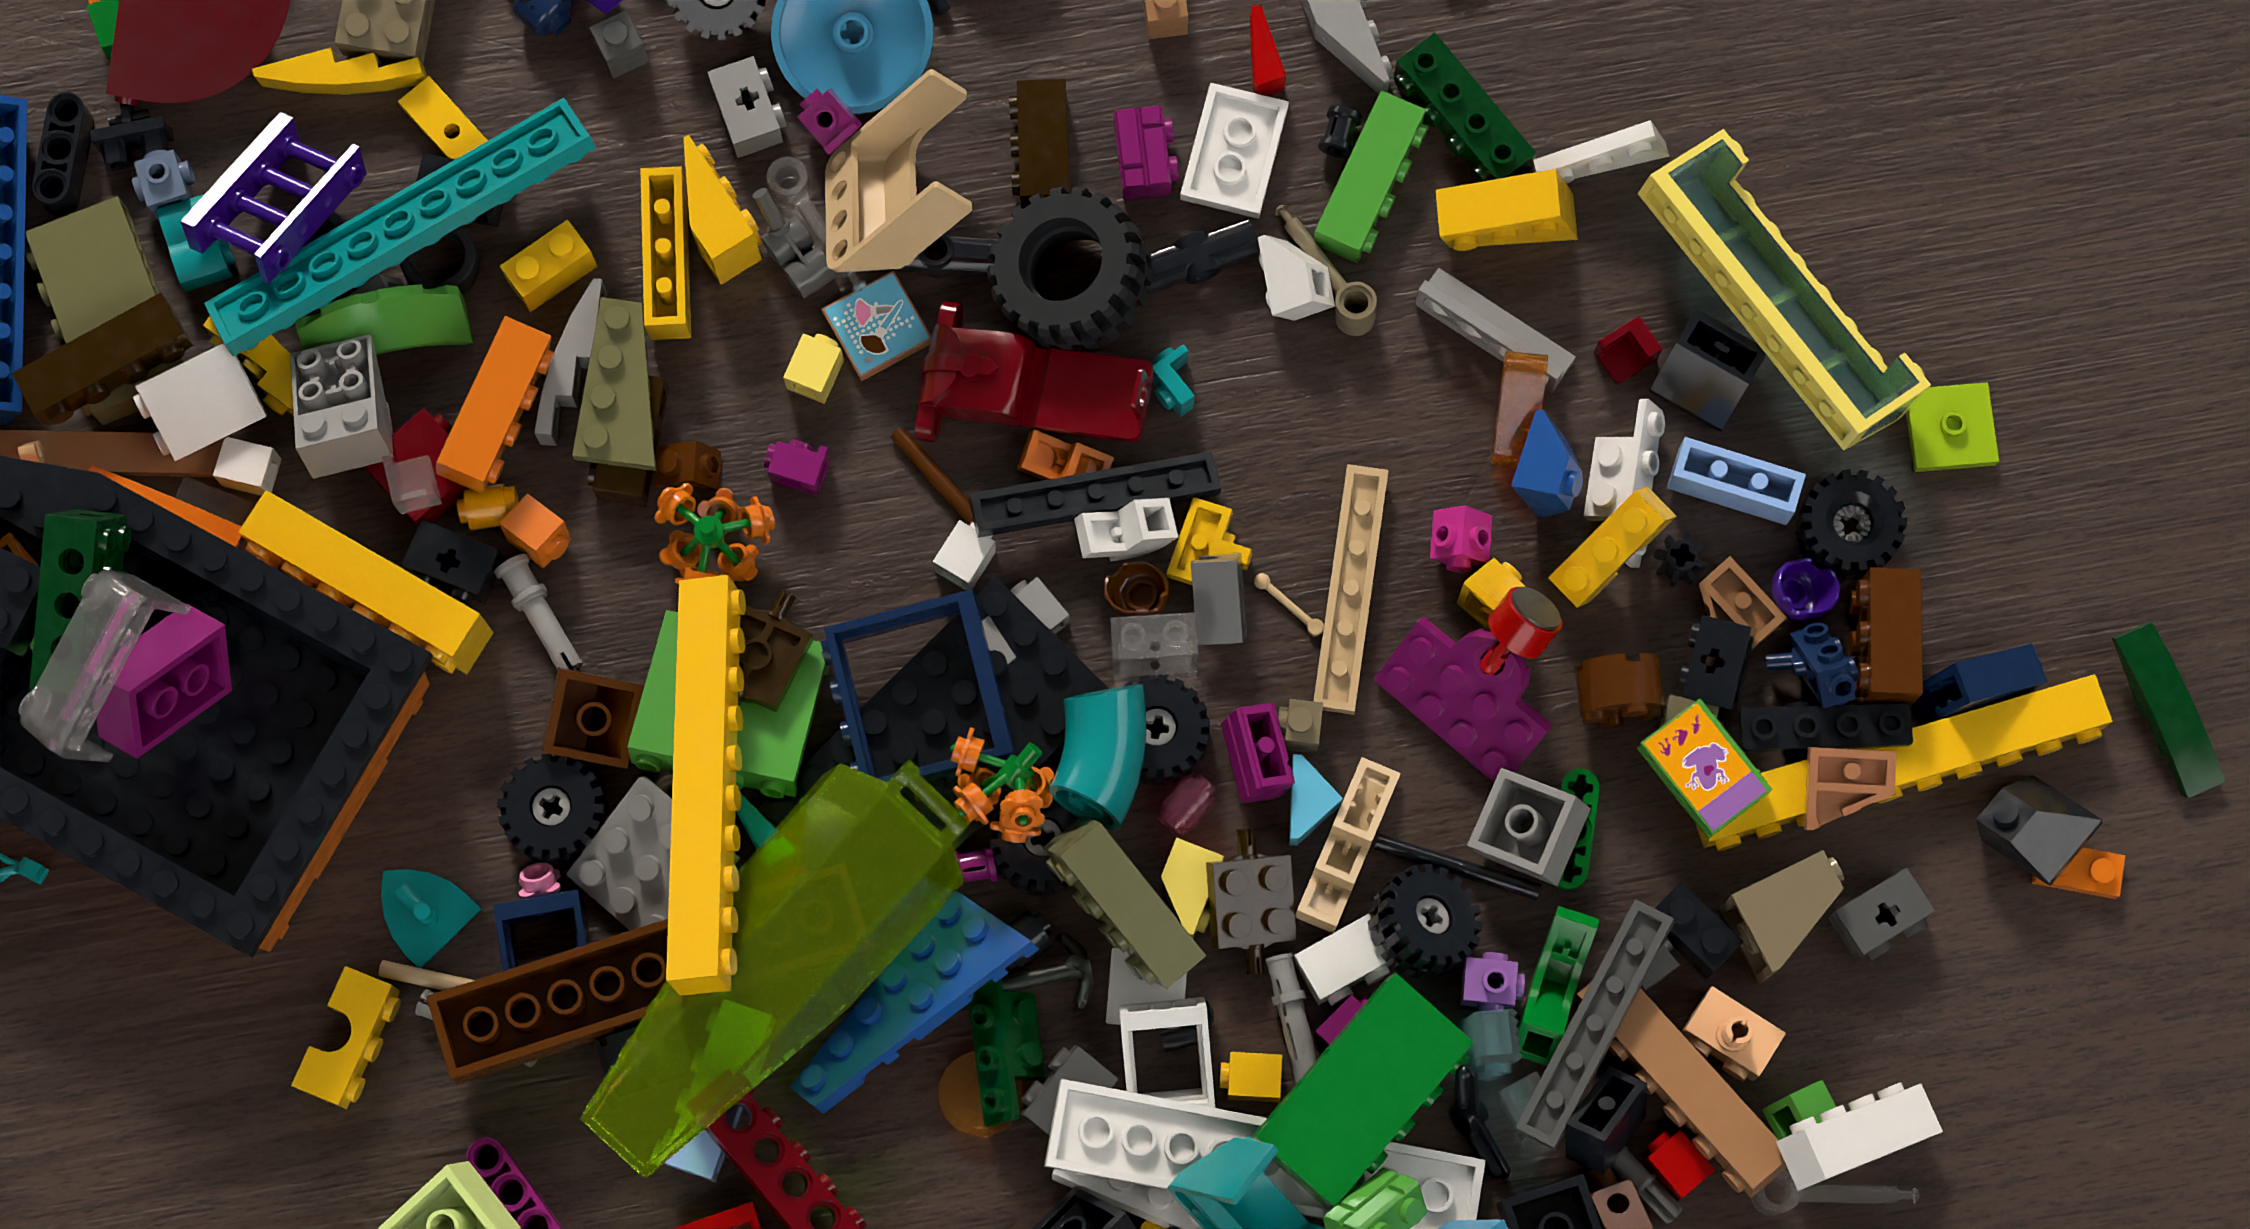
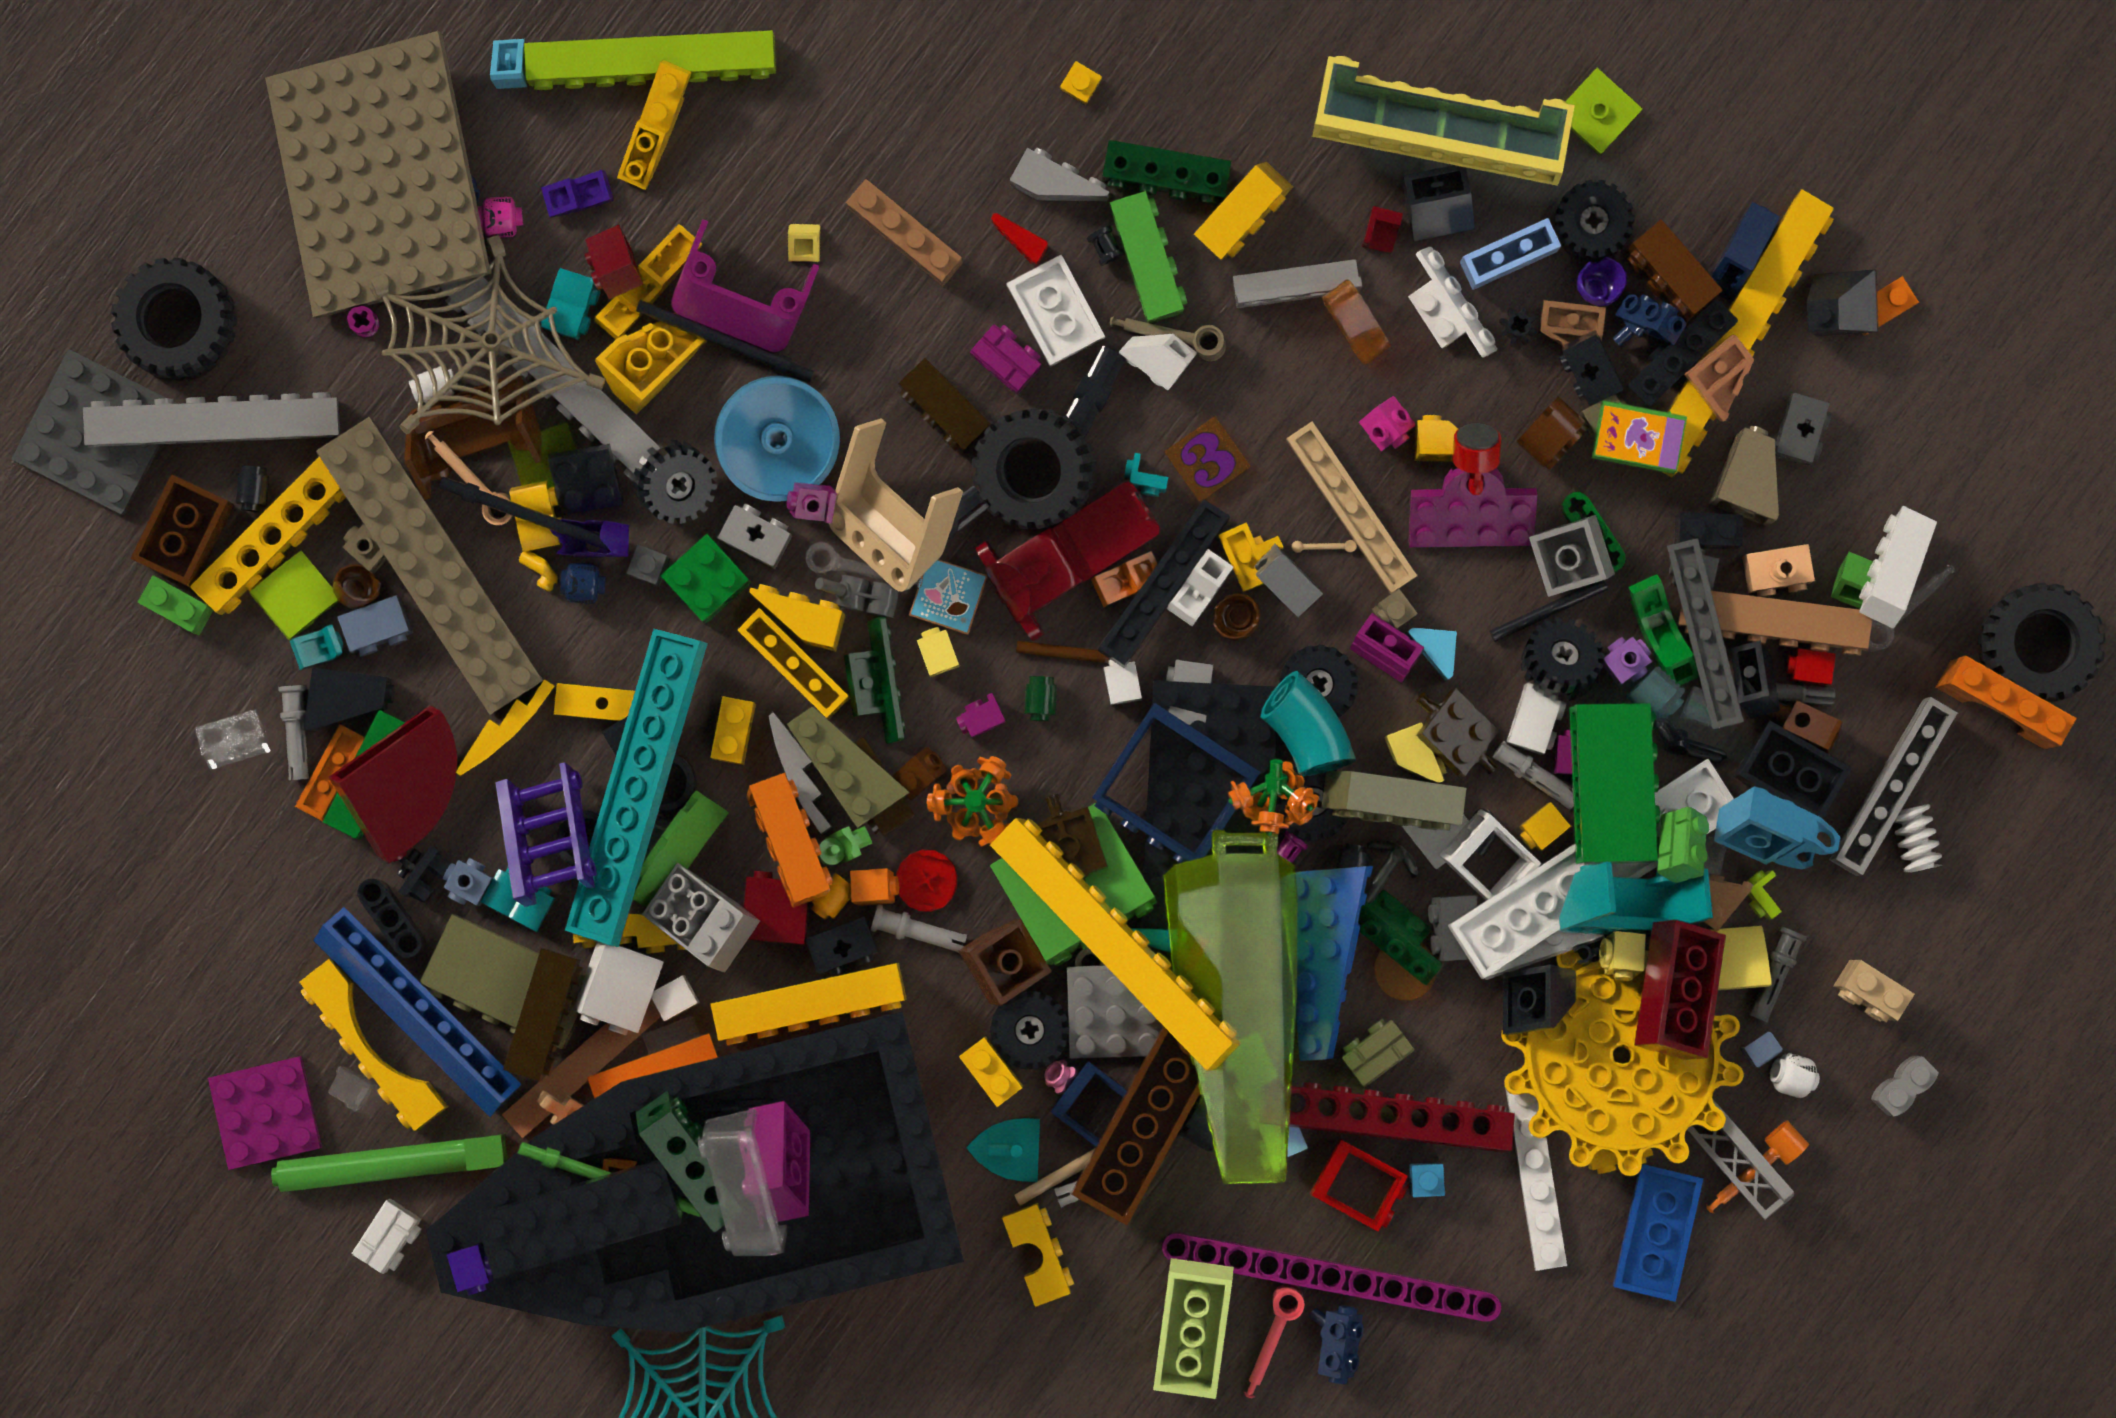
camera: 40 degrees left, 10 degrees up
(411, 483) = (784, 924): clear panel -> none
(470, 811) = (991, 1071): none -> yellow brick
(544, 464) = (843, 845): none -> bright green hips
(595, 576) = (927, 880): none -> red tile
(660, 102) = (706, 579): none -> green brick
(724, 339) = (873, 681): none -> dark green bracket
(871, 499) = (1040, 698): none -> dark green brick
(872, 1149) = (1376, 1052): none -> olive brick
(1158, 638) = (1286, 631): clear window -> none
(1187, 805) = (1373, 710): clear pink brick -> none
(1251, 419) = (1207, 459): none -> tile
(1347, 845) = (1479, 652): tan slope -> none
(1547, 469) = (1404, 341): blue slope -> none
(1610, 152) = (1267, 128): white wing -> none
(1611, 545) = (1479, 355): yellow arch -> none
(2169, 709) = (1856, 170): dark green slope -> none

